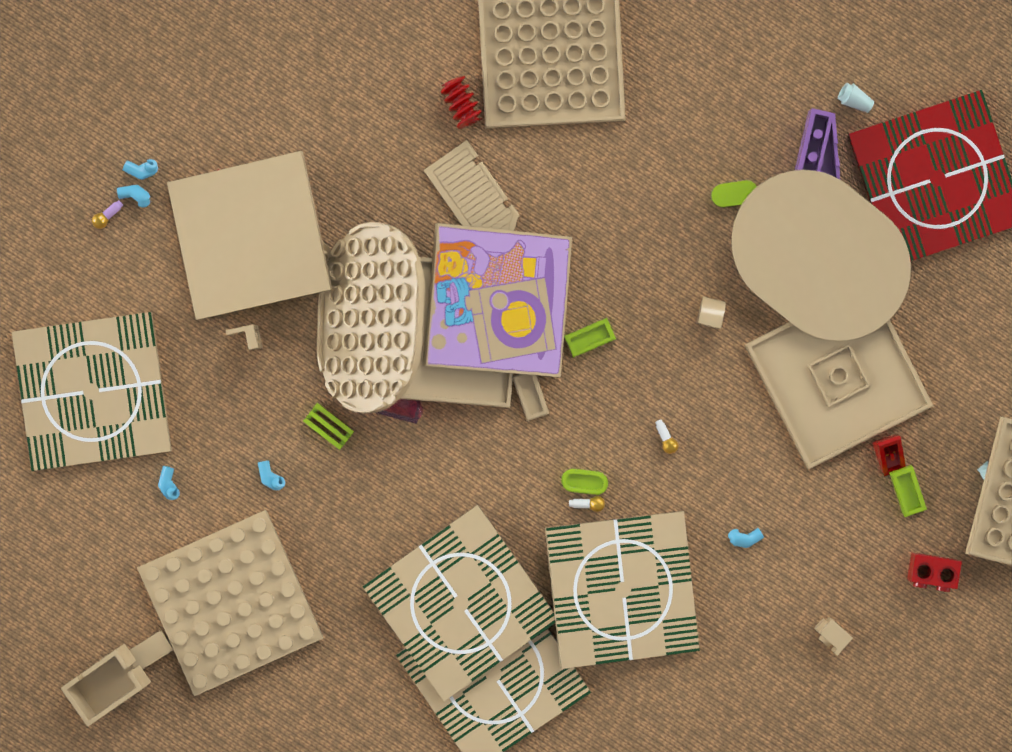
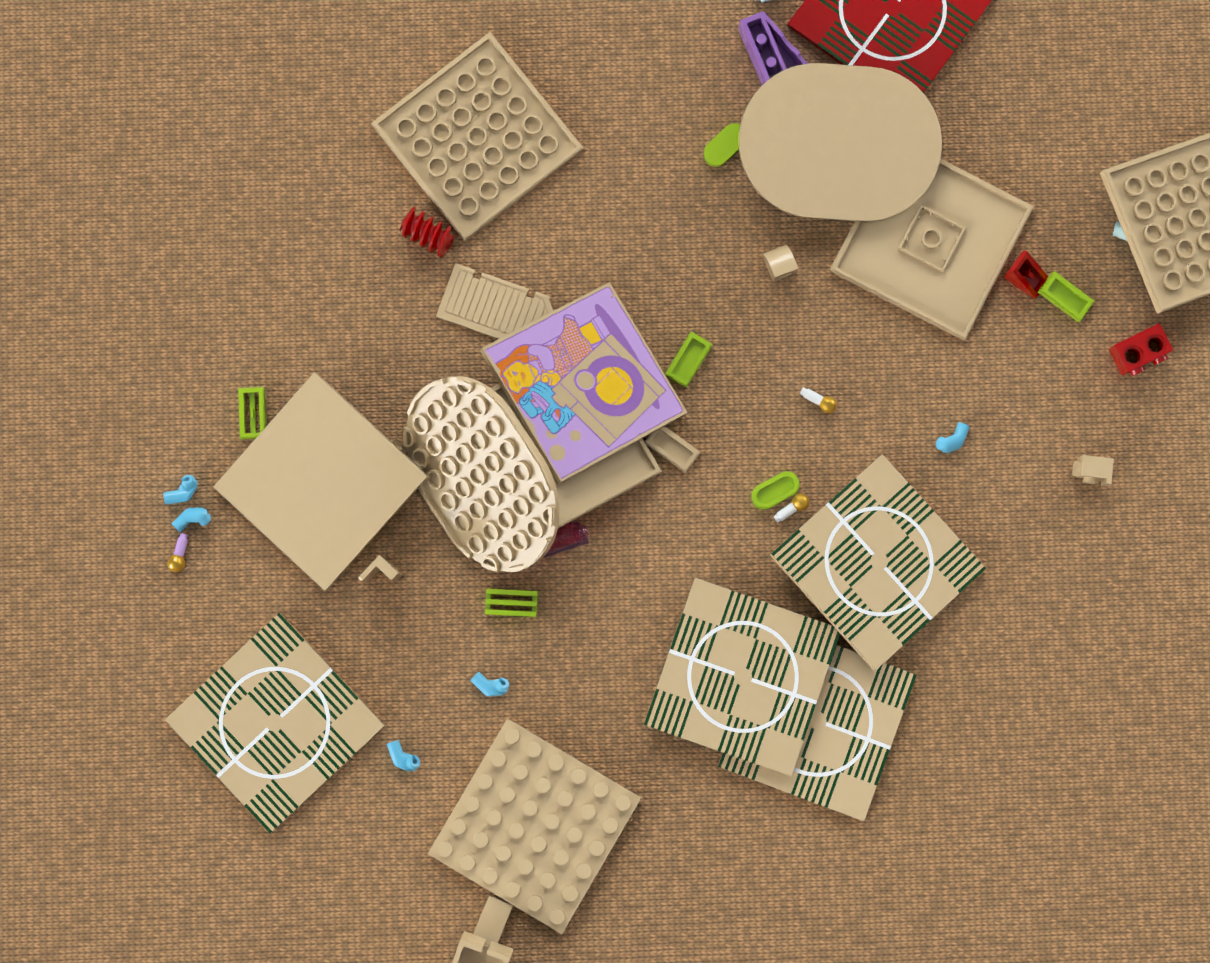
camera: 40 degrees left, 5 degrees down
(216, 159) = (242, 413): none -> lime tile

